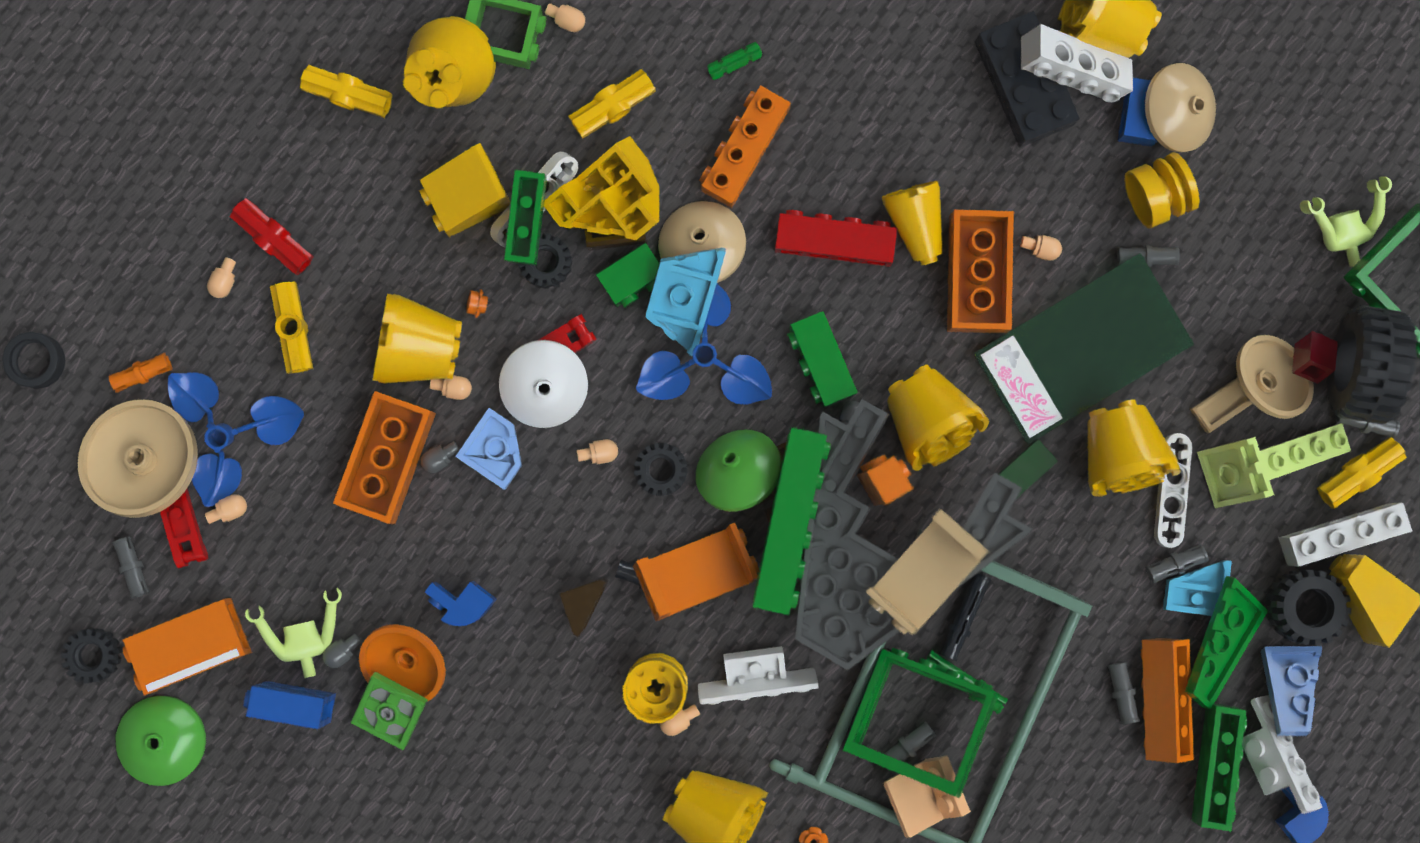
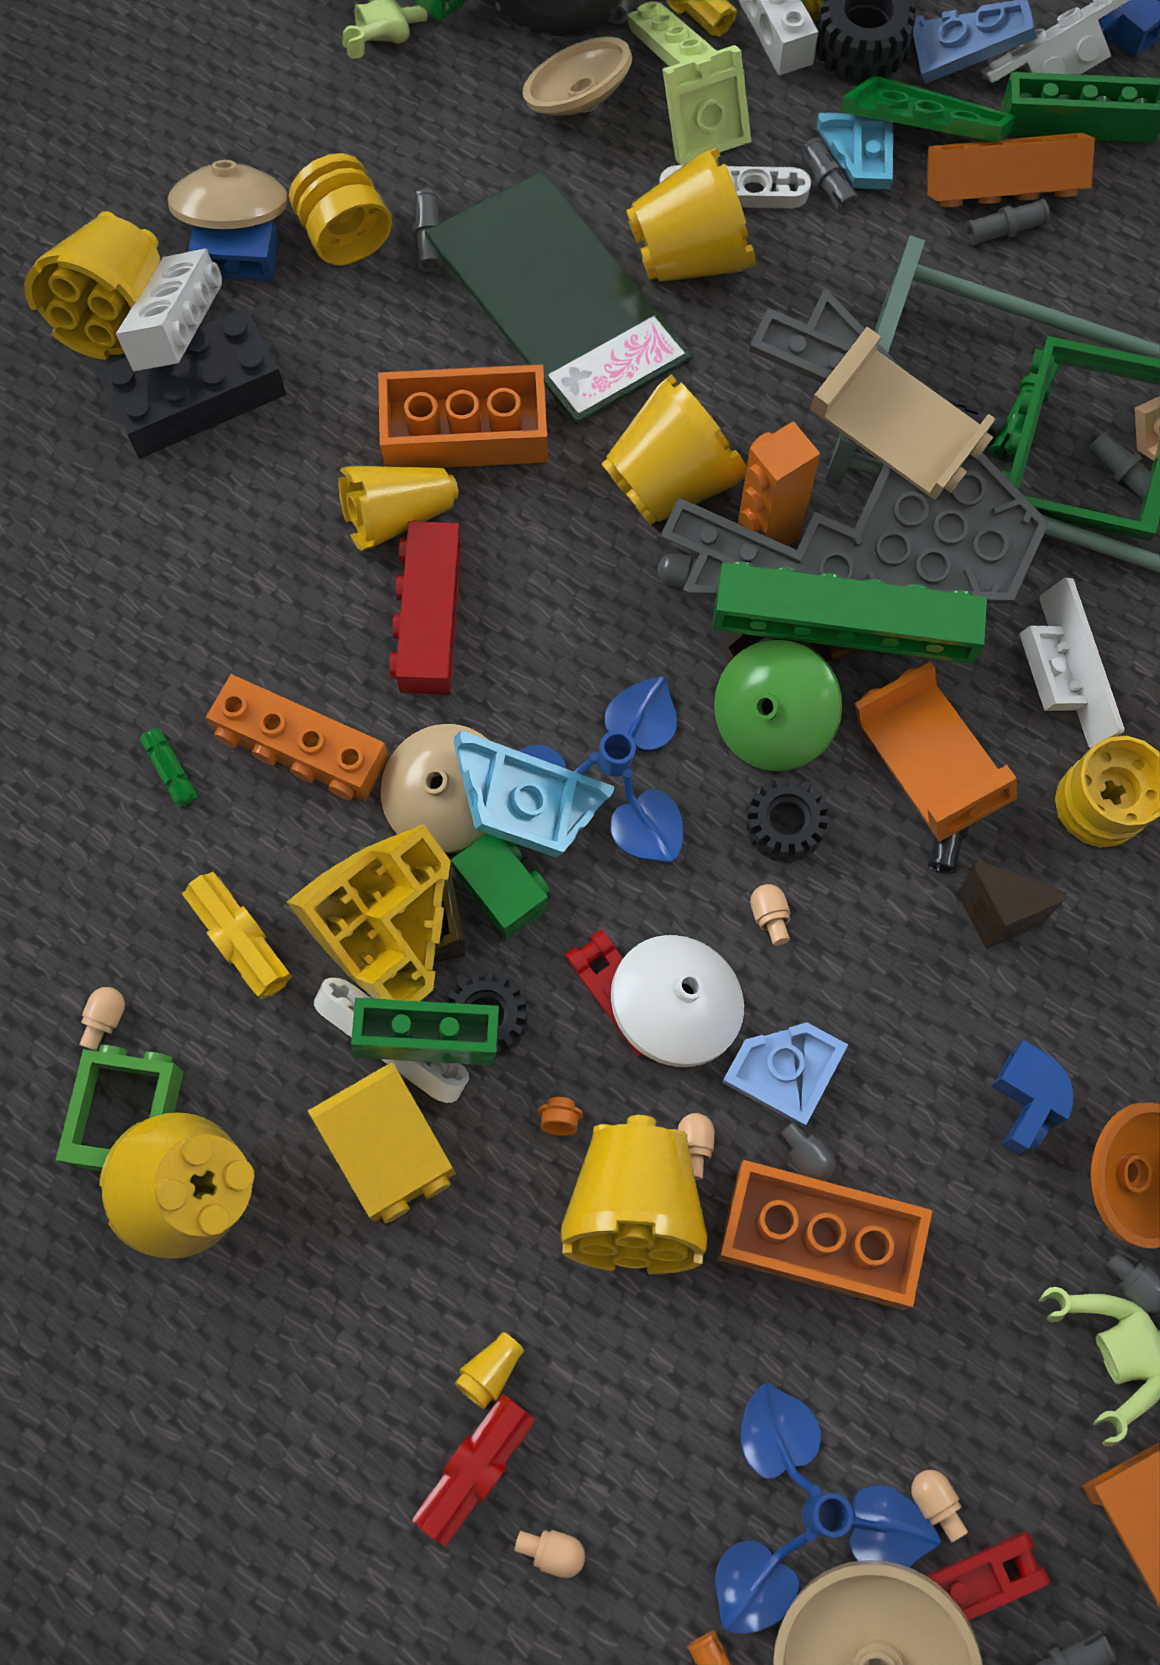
camera: 90 degrees left, 15 degrees down
(294, 346) = (658, 1409): yellow piece -> none
(327, 249) = (488, 1372): none -> yellow cone
(346, 91) = (224, 1364): yellow piece -> none
(821, 360) = (604, 611): green brick -> none
(1029, 466) = (727, 355): dark green tile -> none
(1042, 247) = (423, 349): light nougat cylinder -> none
(1221, 406) = (616, 140): tan tile -> none
(1314, 357) = (547, 37): dark red brick -> none

